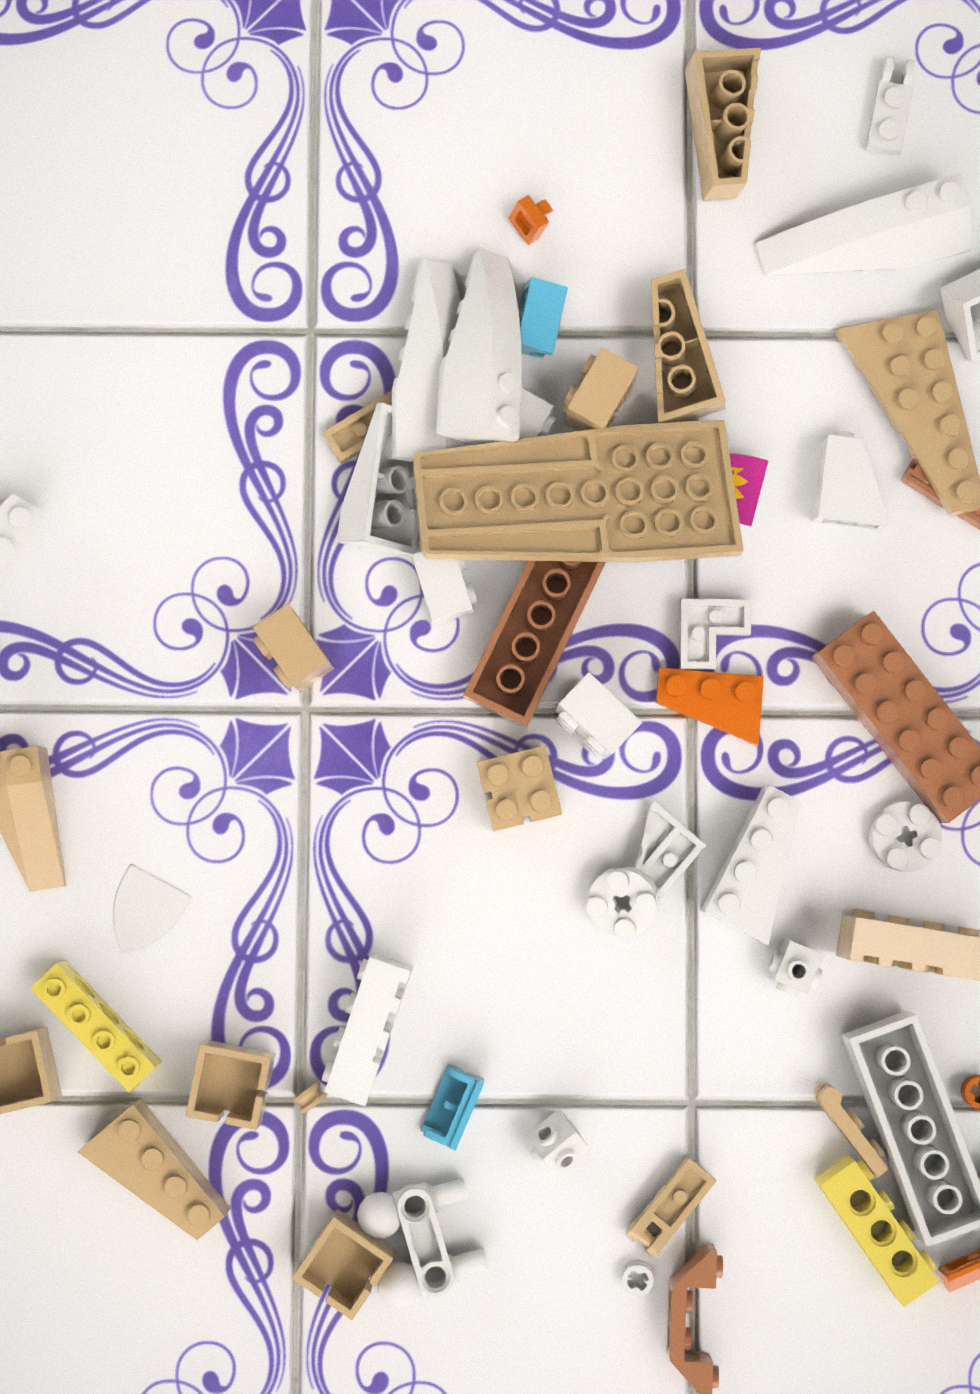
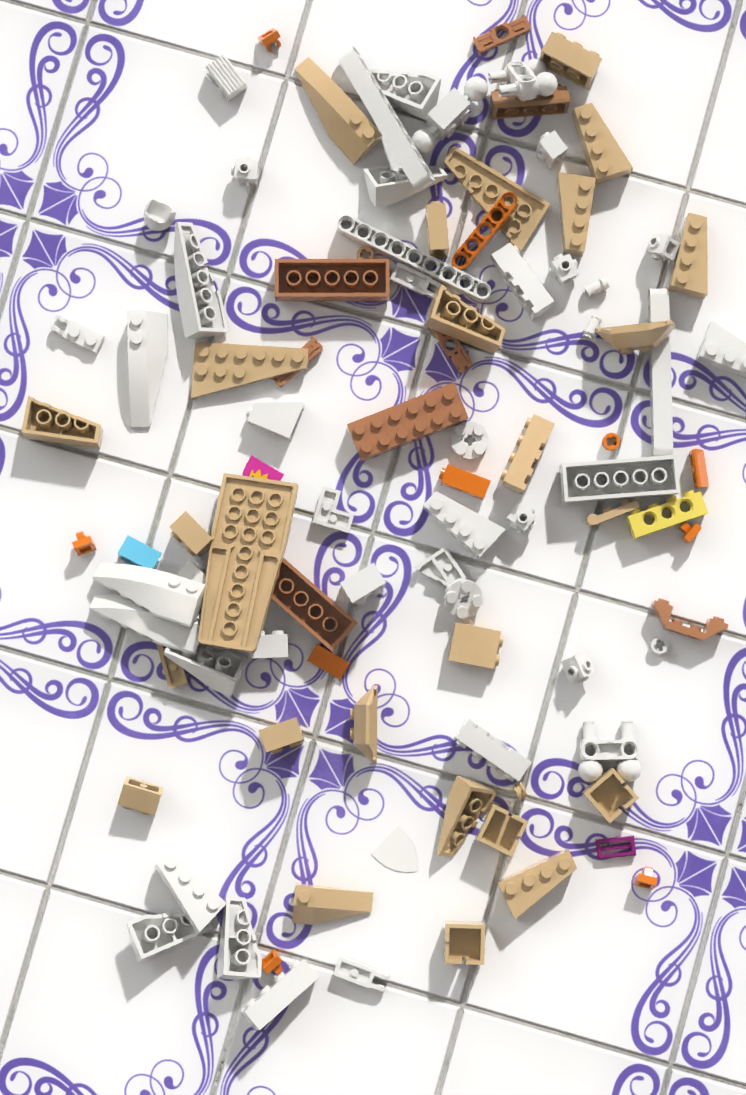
camera: 75 degrees left, 0 degrees up
(96, 1025) = (451, 893): light yellow brick -> none
(123, 435) = (140, 796): none -> tan brick
(213, 1368) = (645, 879): none -> orange tile
(246, 1267) = (612, 847): none -> magenta tile
(257, 1005) = (464, 806): none -> tan wedge
(352, 791) = (365, 724): none -> tan wedge
(445, 695) = (328, 661): none -> orange slope
(452, 1106) = (545, 717): medium azure hinge -> none
(519, 787) = (388, 634): tan piece -> none
(544, 947) = (475, 646): none -> tan brick
(671, 1206) = (626, 617): tan plate -> none
(683, 362) = (183, 485): tan wedge -> none
(716, 699) = (370, 518): orange wing -> none
(830, 847) = (464, 481): none -> orange brick
(858, 1280) = (689, 531): none -> orange tile

